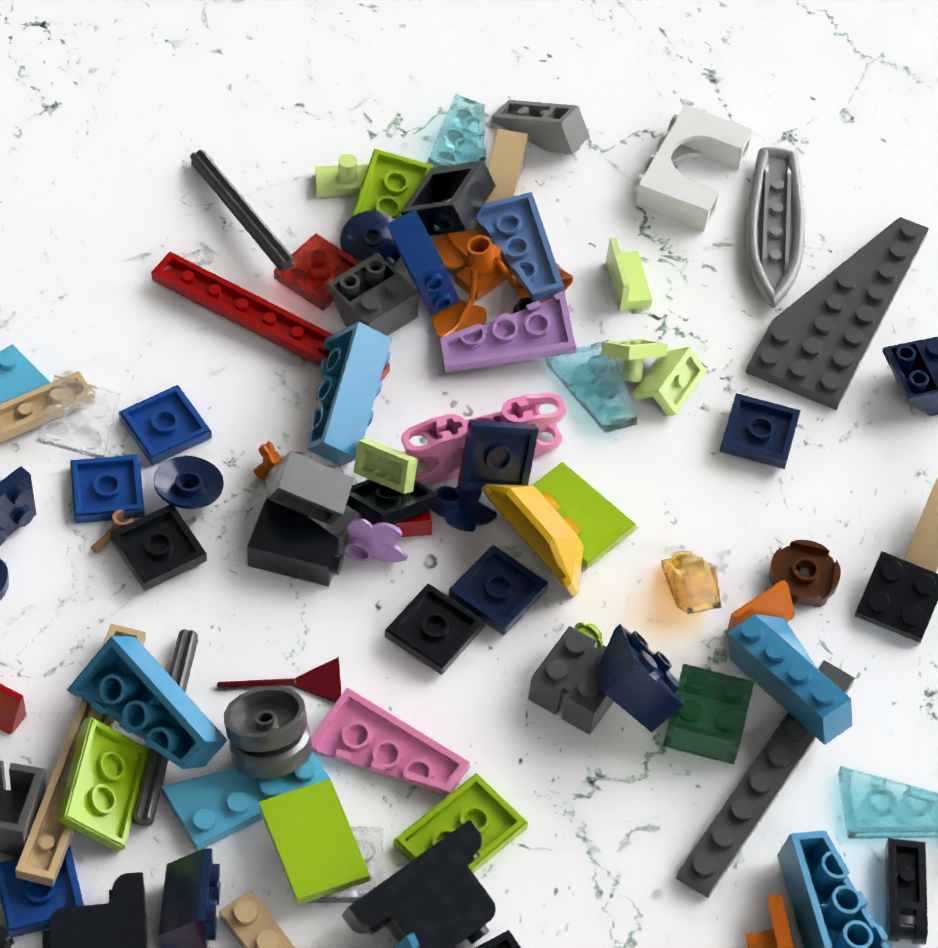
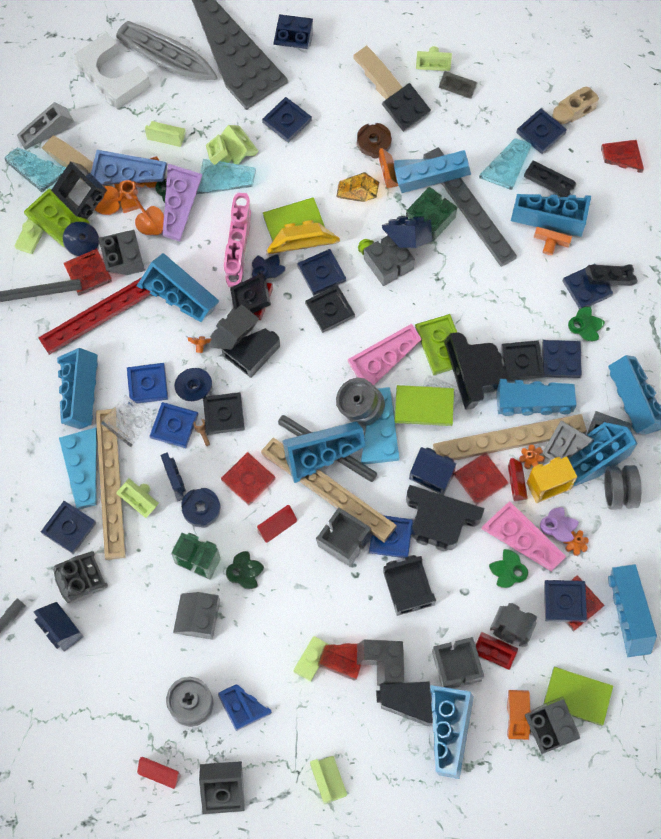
camera: 60 degrees left, 15 degrees up
(56, 629) = (248, 478): none -> clear red plate
(103, 784) = (352, 485): lime tile -> none
(106, 334) = (77, 387): none -> dark azure wedge
(320, 681) = (332, 372): dark red piece -> none
(375, 541) = (270, 316): lavender plate -> none
(385, 465) = (234, 288): yellowish green tile -> none
(423, 262) = (115, 219): blue window -> none
(497, 454) = (256, 236): dark blue plate -> none

